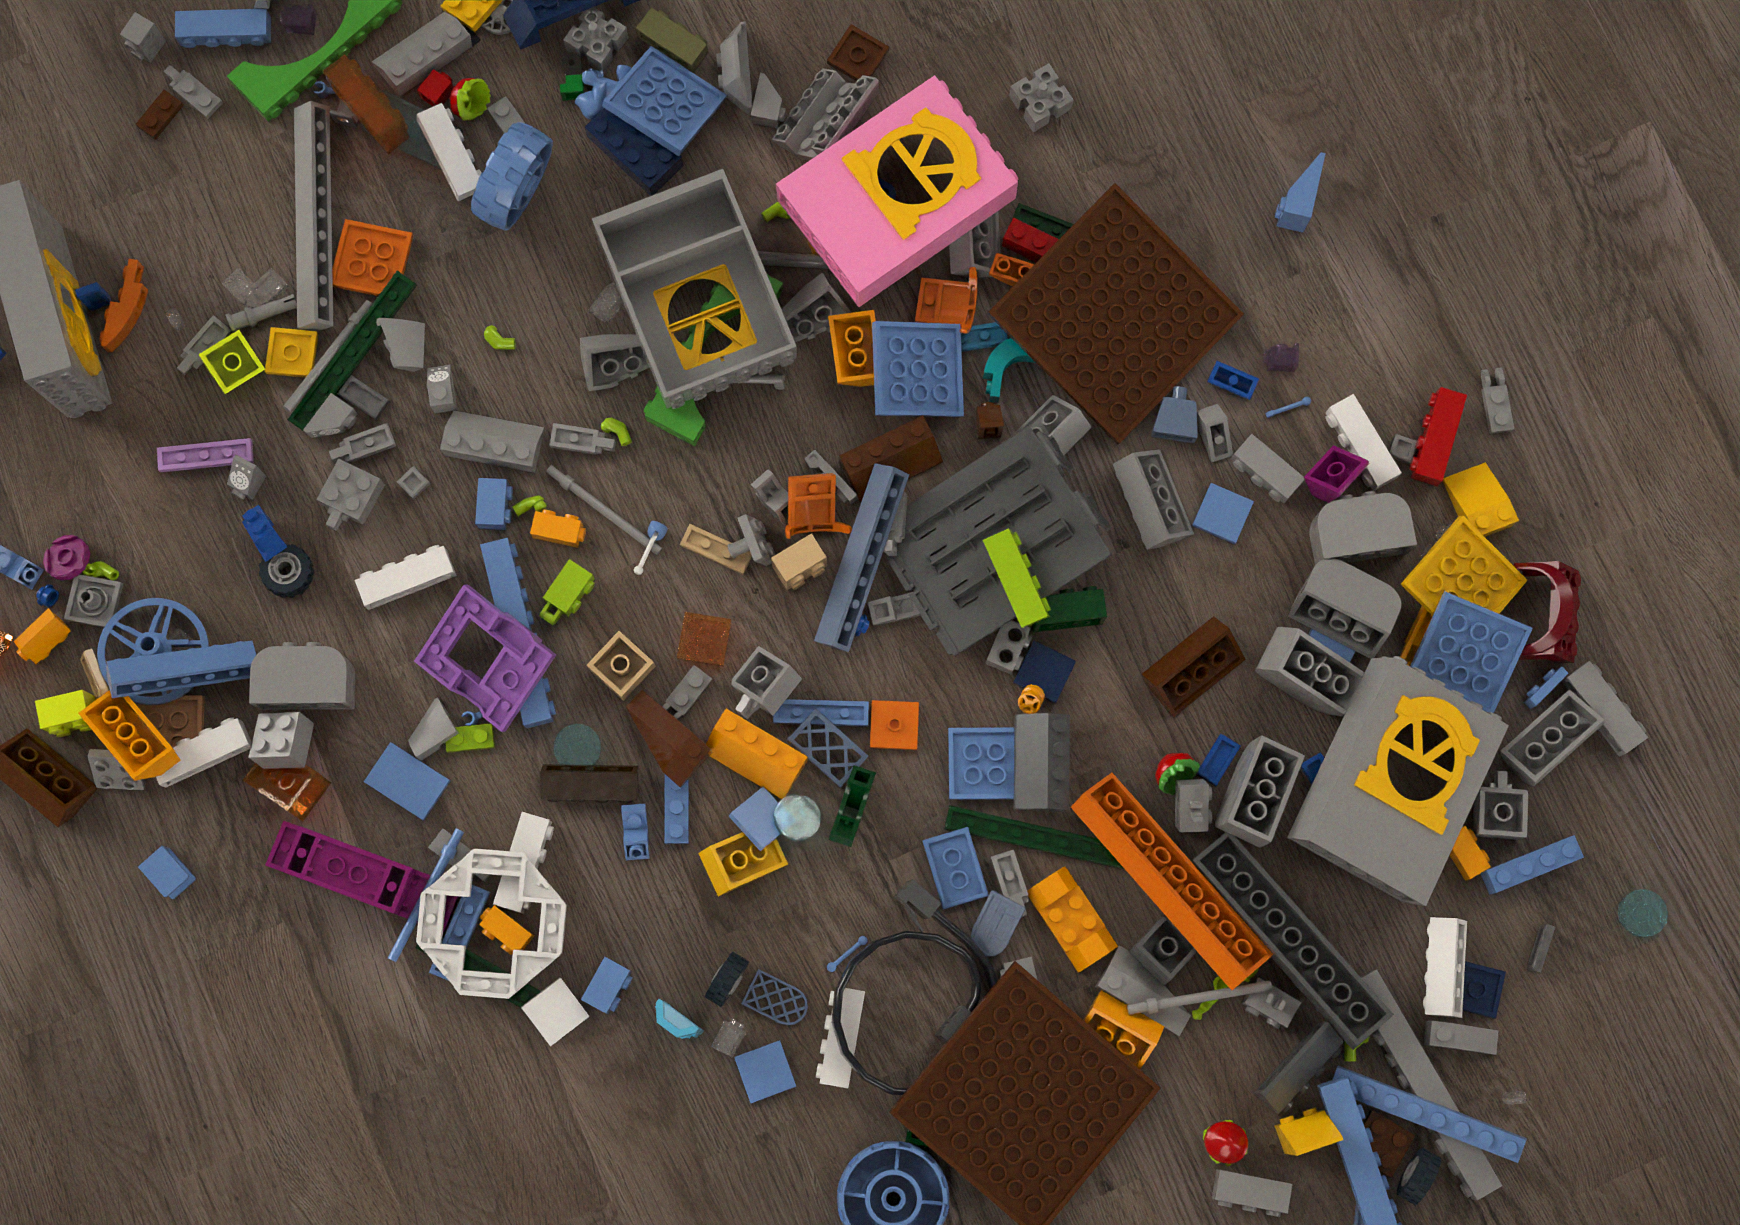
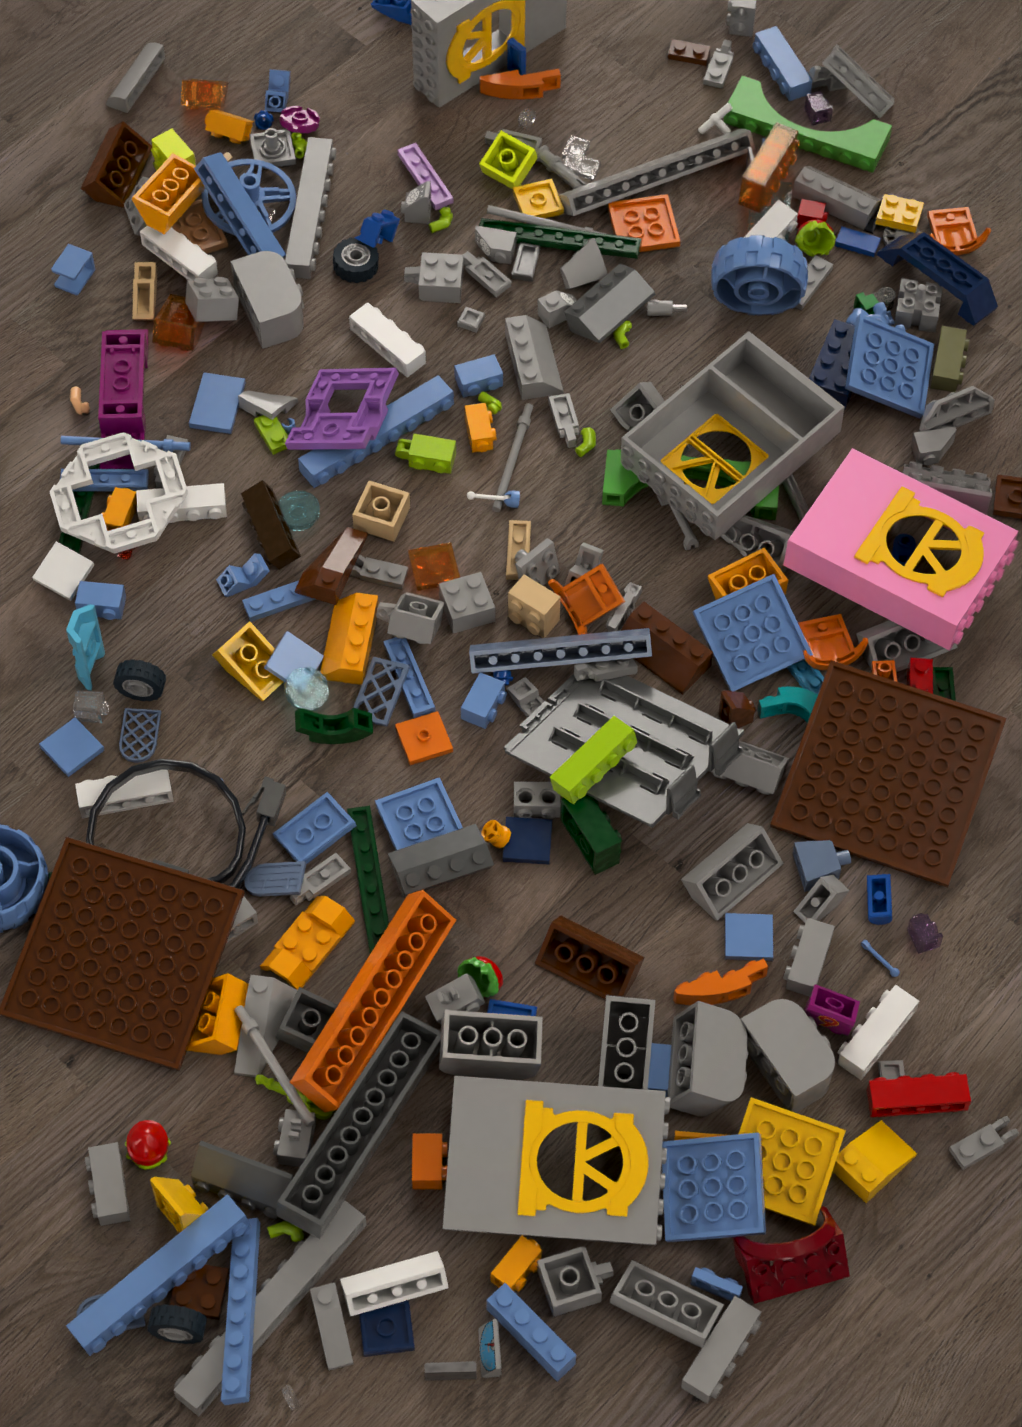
camera: 70 degrees right, 20 degrees down
(192, 591) = (309, 207): none -> light grey brick
(230, 806) = (144, 290): none -> tan slope
(269, 127) = (715, 119): none -> white piece
(273, 459) = (443, 222): none -> lime arm
(342, 927) = (75, 398): none -> light nougat arm
(463, 337) = (608, 304): none -> slope
(486, 58) = (857, 241): none -> blue tile
(486, 285) = (663, 308): none -> light grey piece
(762, 623) = (467, 602): none -> light grey brick
(879, 652) = (483, 700): none -> medium blue brick
(1264, 568) = (714, 990): none -> orange slope
(1338, 892) = (427, 1161): none -> orange brick
(1531, 906) = (490, 1349): none -> slope

